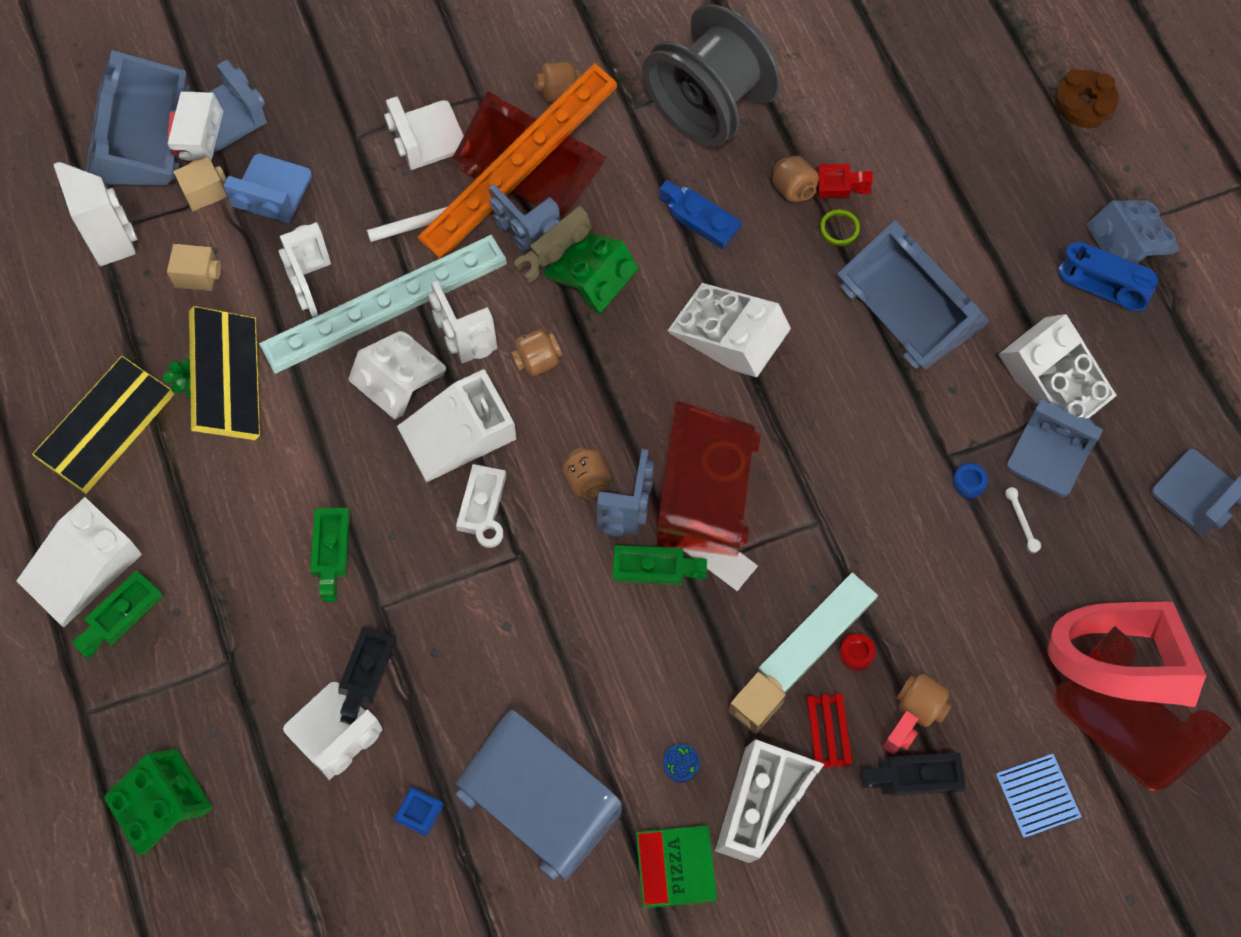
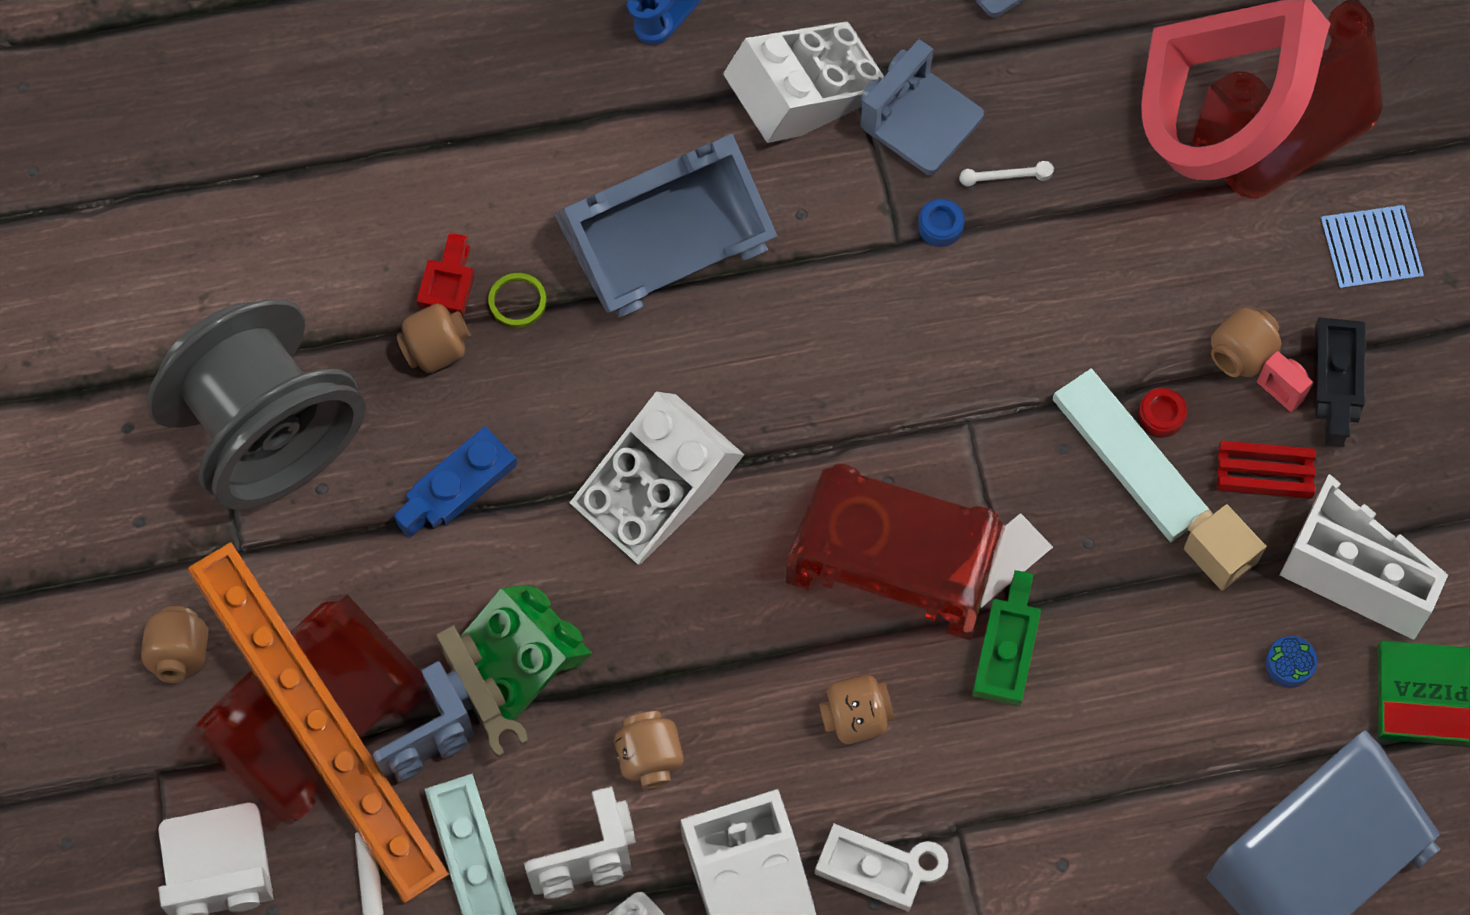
camera: 80 degrees left, 0 degrees up
(623, 513) = (921, 641): sand blue bracket -> none

